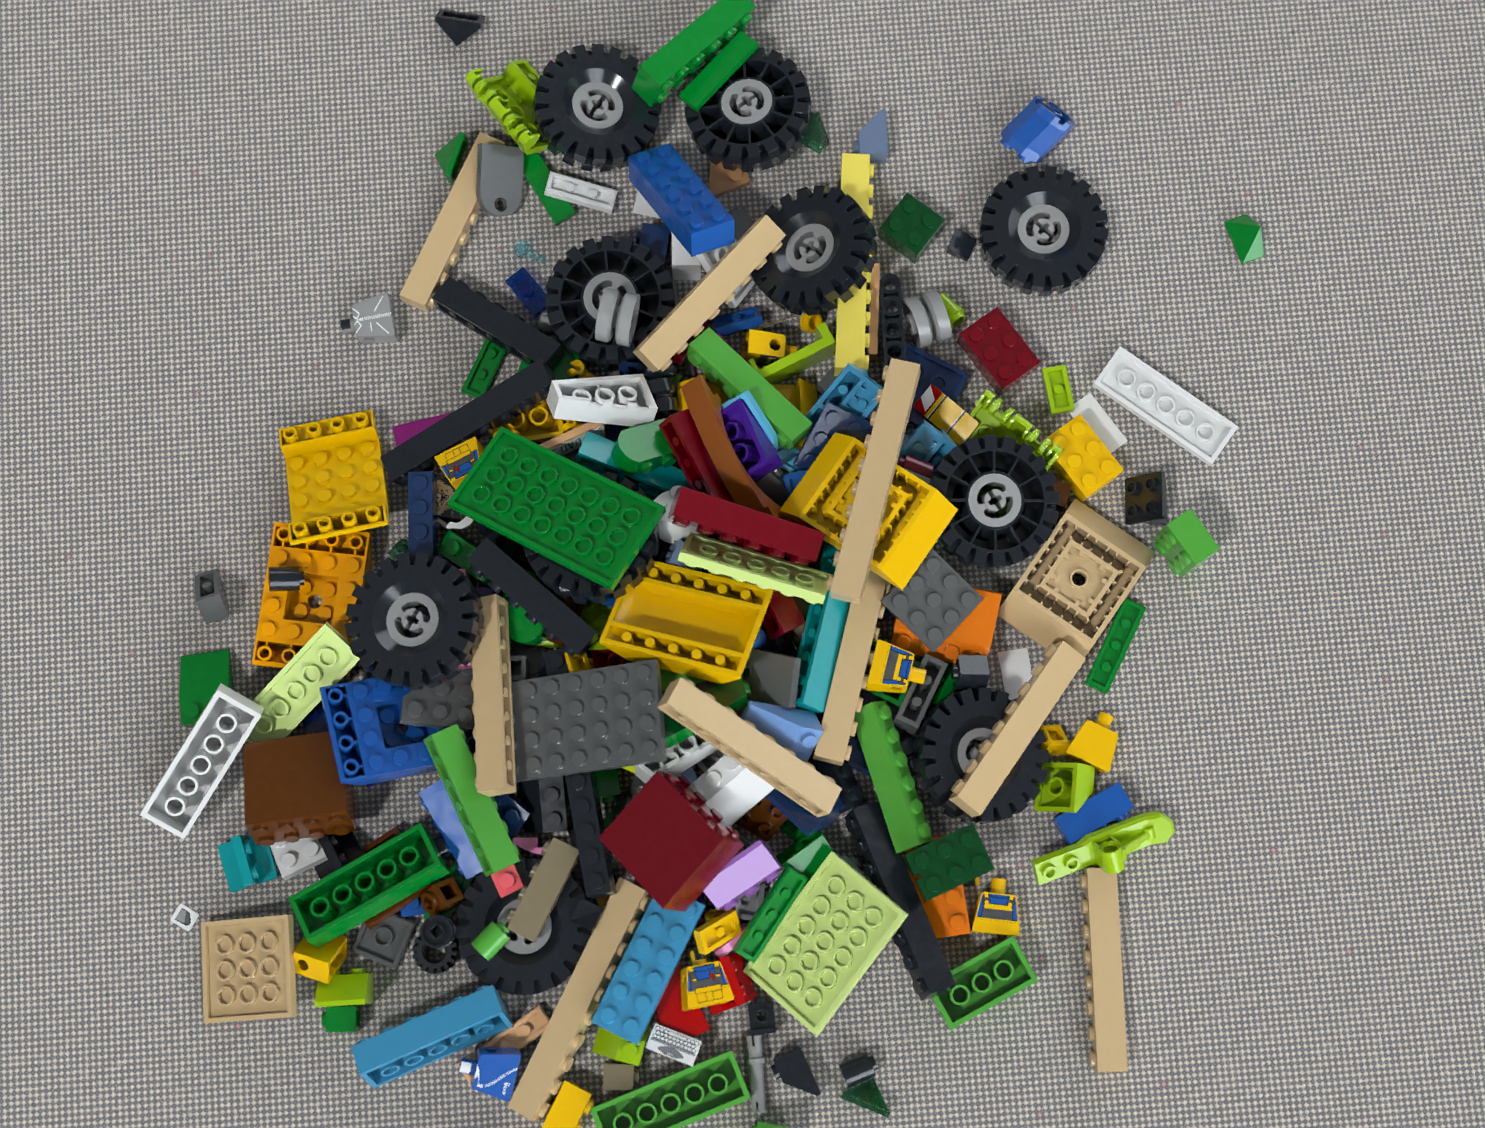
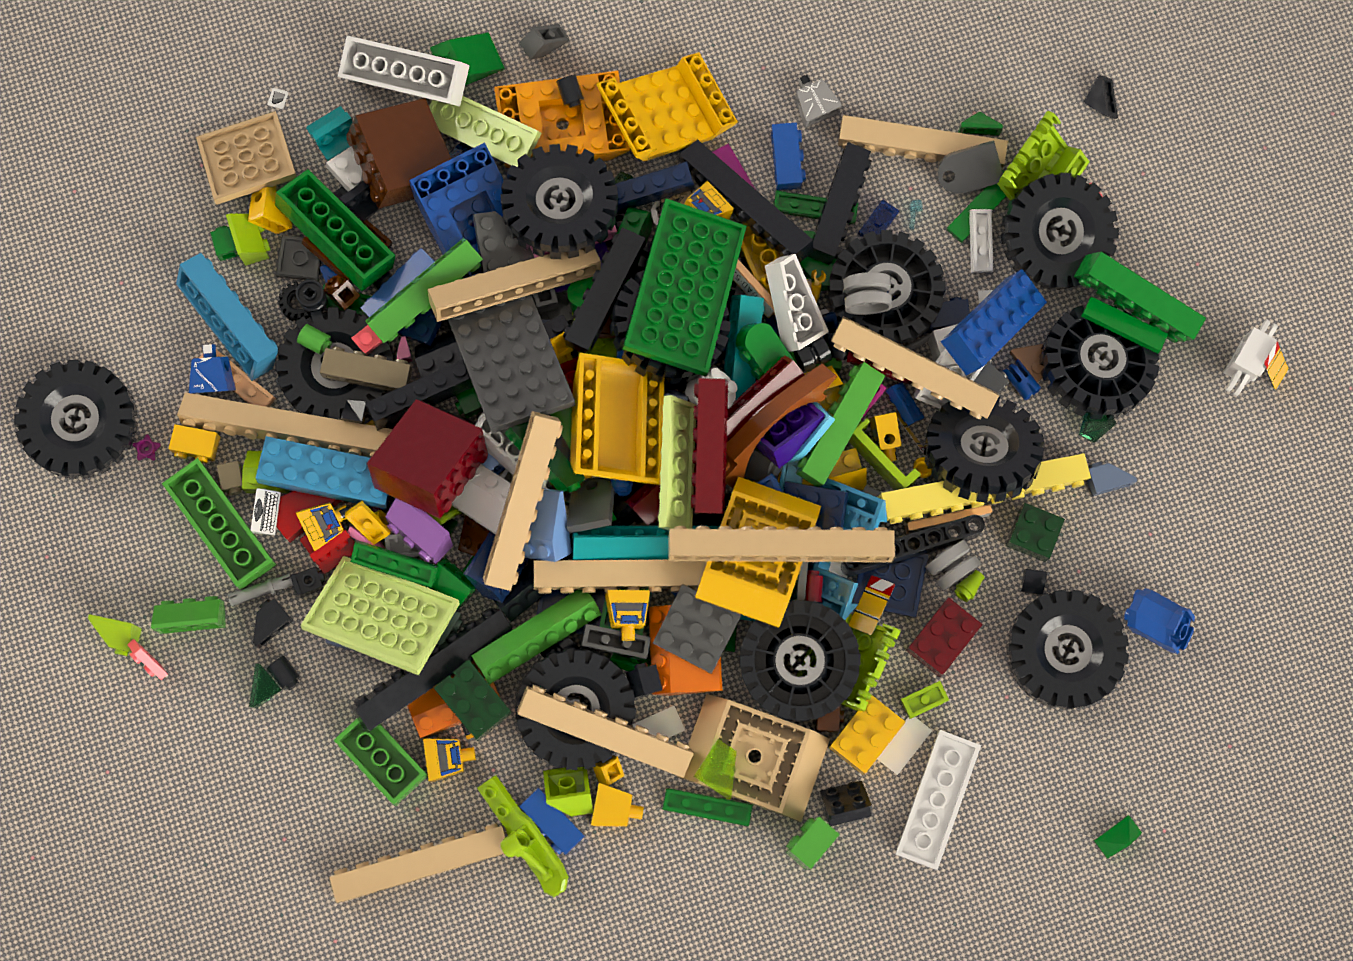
camera: 70 degrees right, 0 degrees up
(426, 367) = (787, 156): none -> blue brick
(744, 194) = (1022, 380): none -> blue arm
(1085, 619) = (718, 769): none -> clear neon green wing

